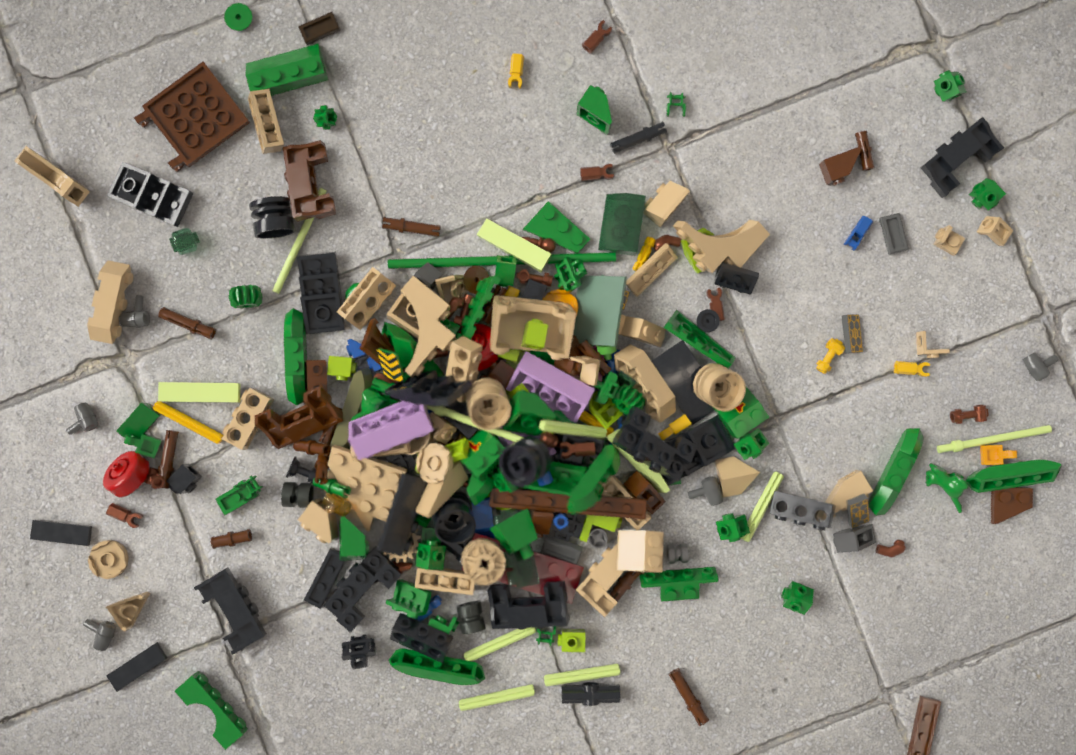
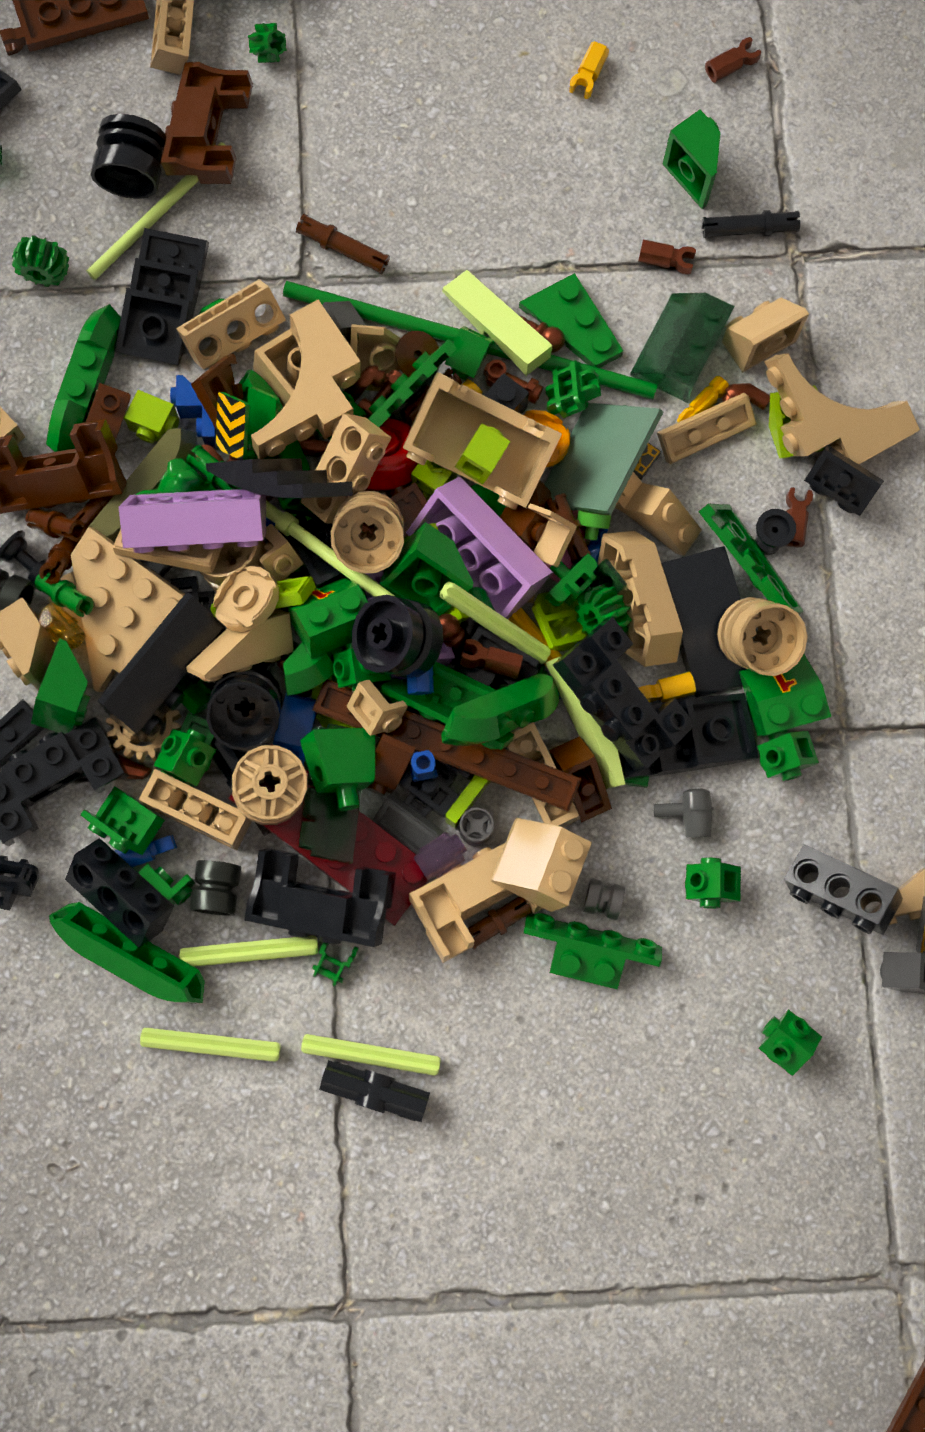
camera: 15 degrees right, 10 degrees down
(524, 501) = (373, 709): none -> tan bracket
(572, 640) = (374, 986): lime brick -> none
(584, 562) = (440, 855): none -> clear purple brick
(608, 523) = (502, 803): lime brick -> none
(682, 105) = (836, 198): green piece -> none
(693, 704) = (545, 1160): reddish brown pin -> none
(734, 475) = (741, 802): tan slope -> none
(763, 504) = (774, 869): yellowish green axle -> none

